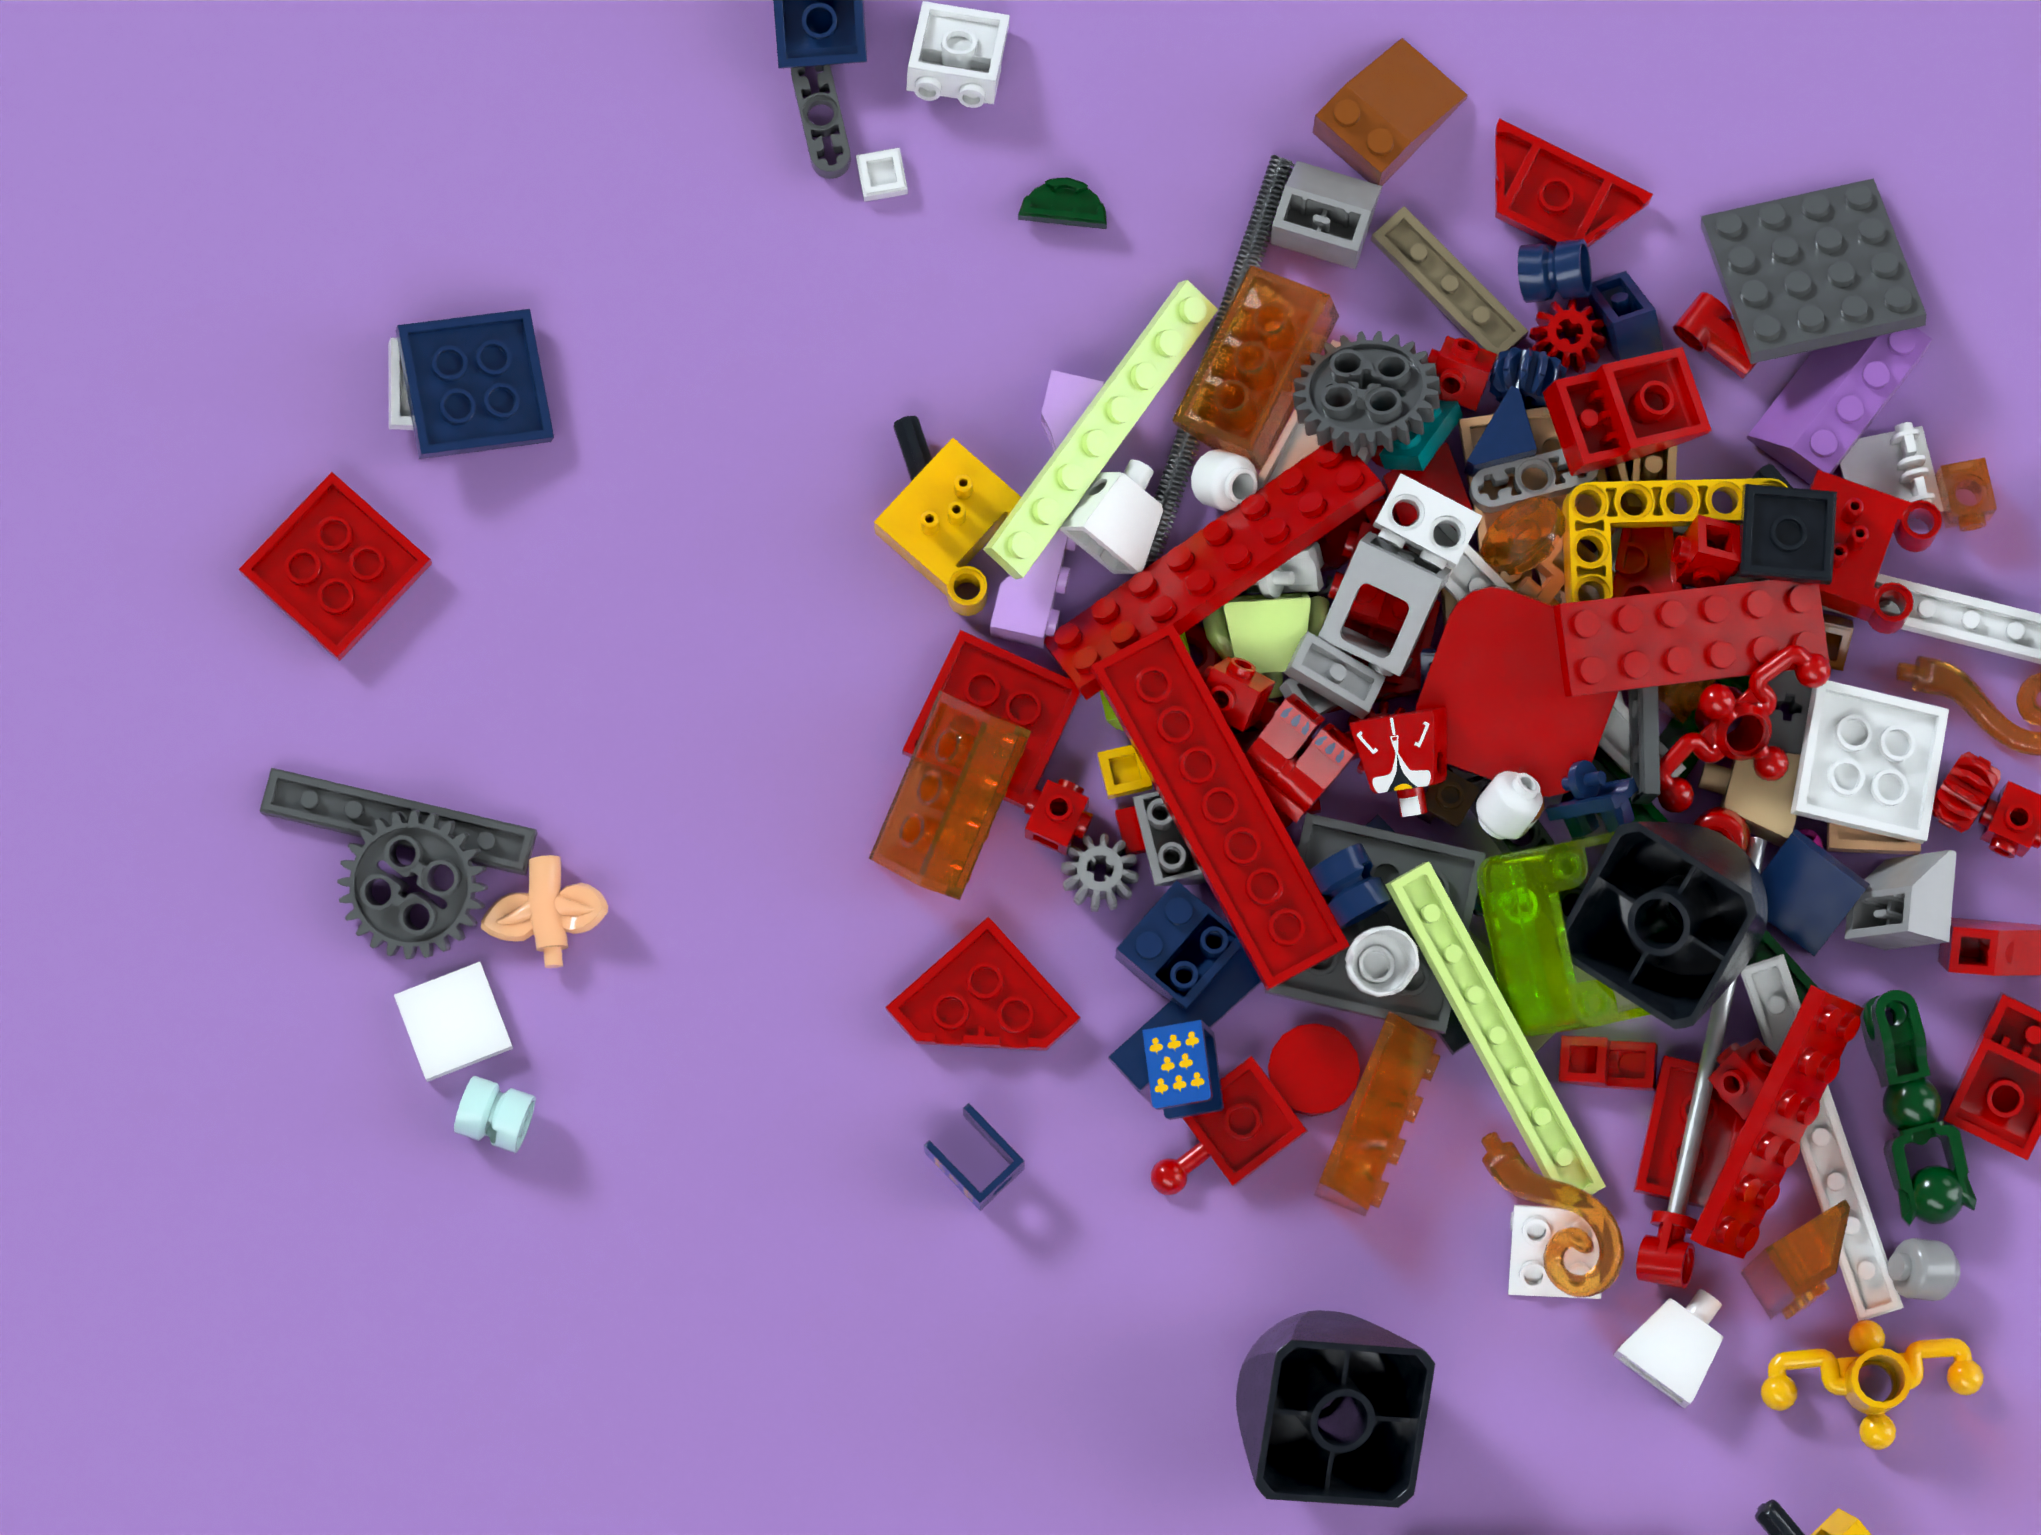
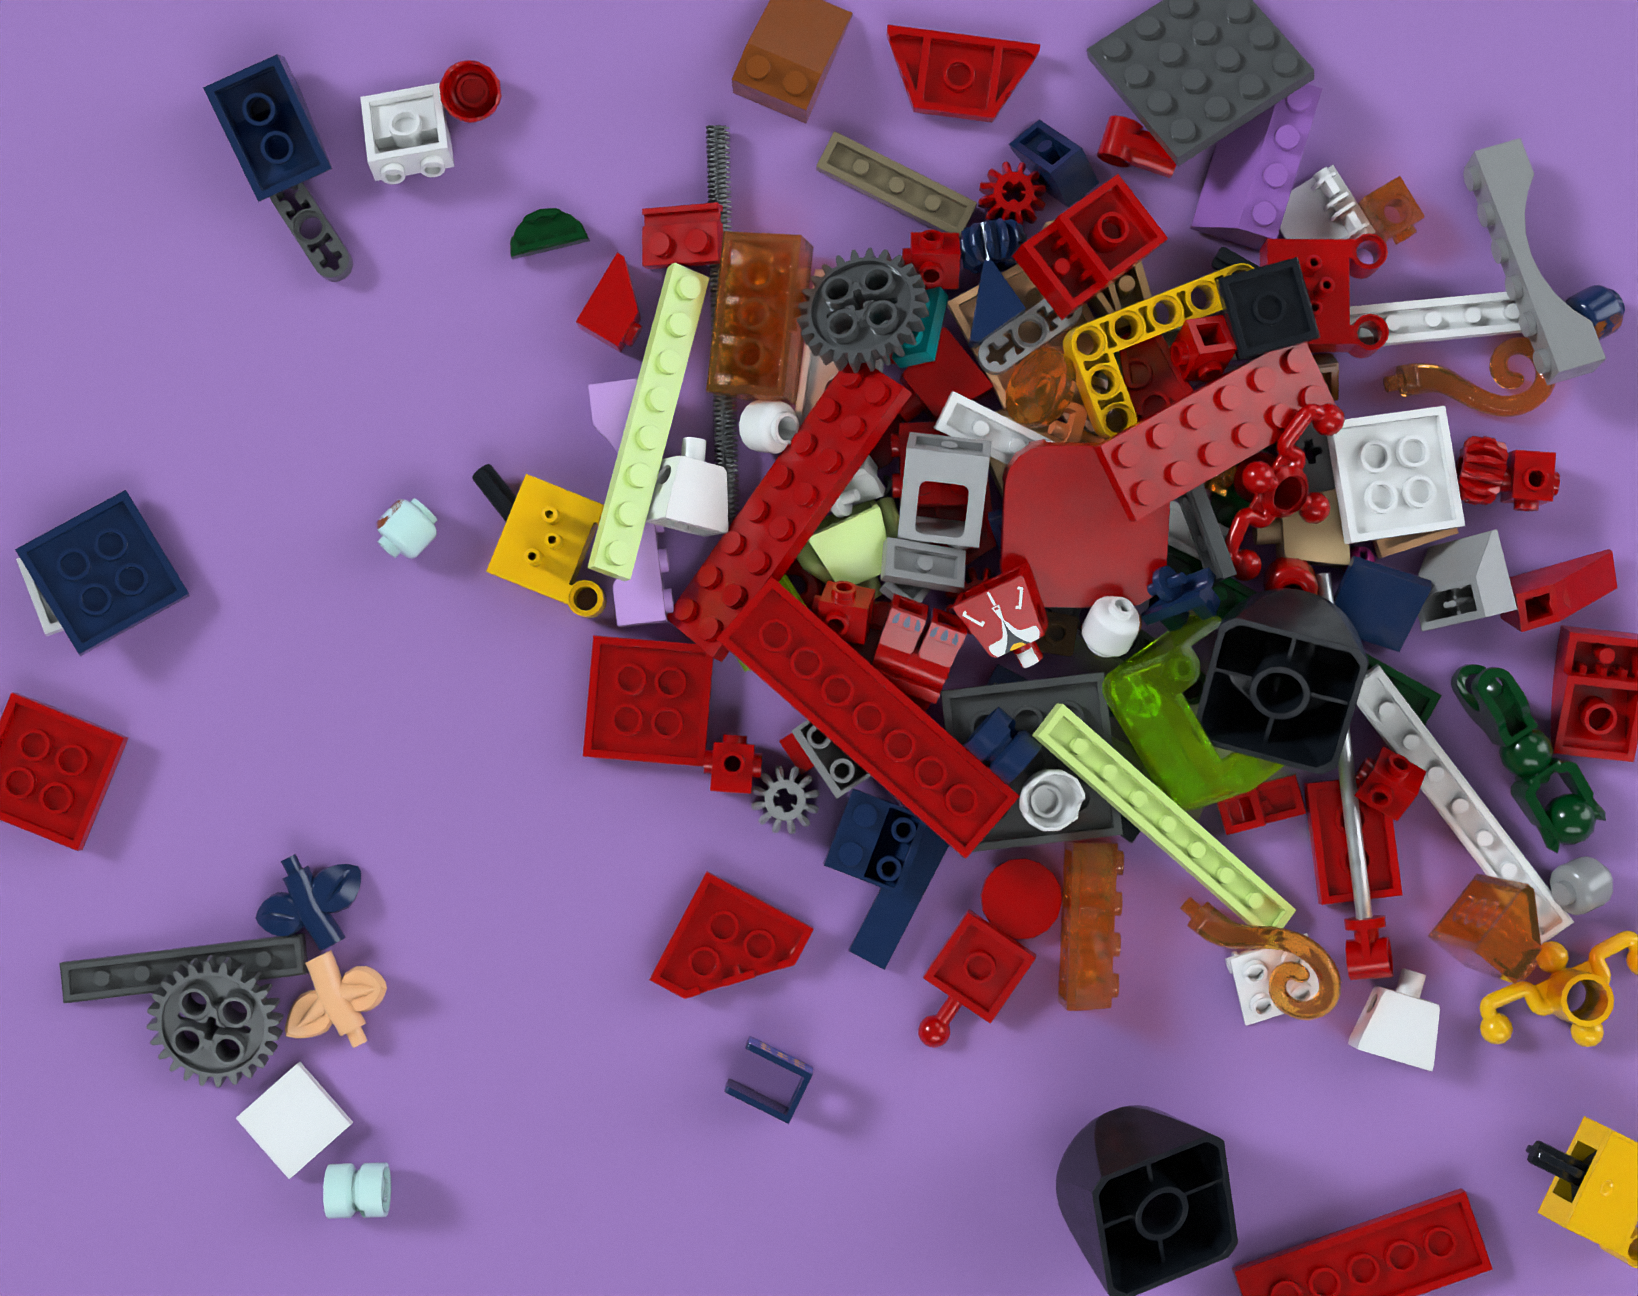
camera: 25 degrees left, 10 degrees up
(558, 799) = (310, 902): none -> dark blue plant
(805, 451) = (406, 528): none -> light aqua head
(881, 174) = (382, 261): white tile -> none
(949, 795) = (636, 784): clear orange slope -> none
(1039, 34) = (470, 91): none -> red hair
(1104, 305) = (613, 308): none -> red slope
(1123, 772) = (771, 708): yellow plate -> none
(1183, 1069) = (917, 949): piece -> none
(1205, 255) = (682, 235): none -> red plate
(1325, 214) = (770, 161): light grey slope -> none
(1431, 511) = (958, 400): white brick -> none
(1551, 271) = (977, 144): dark blue wheel -> none
(1777, 1123) = (1426, 826): red plate -> none

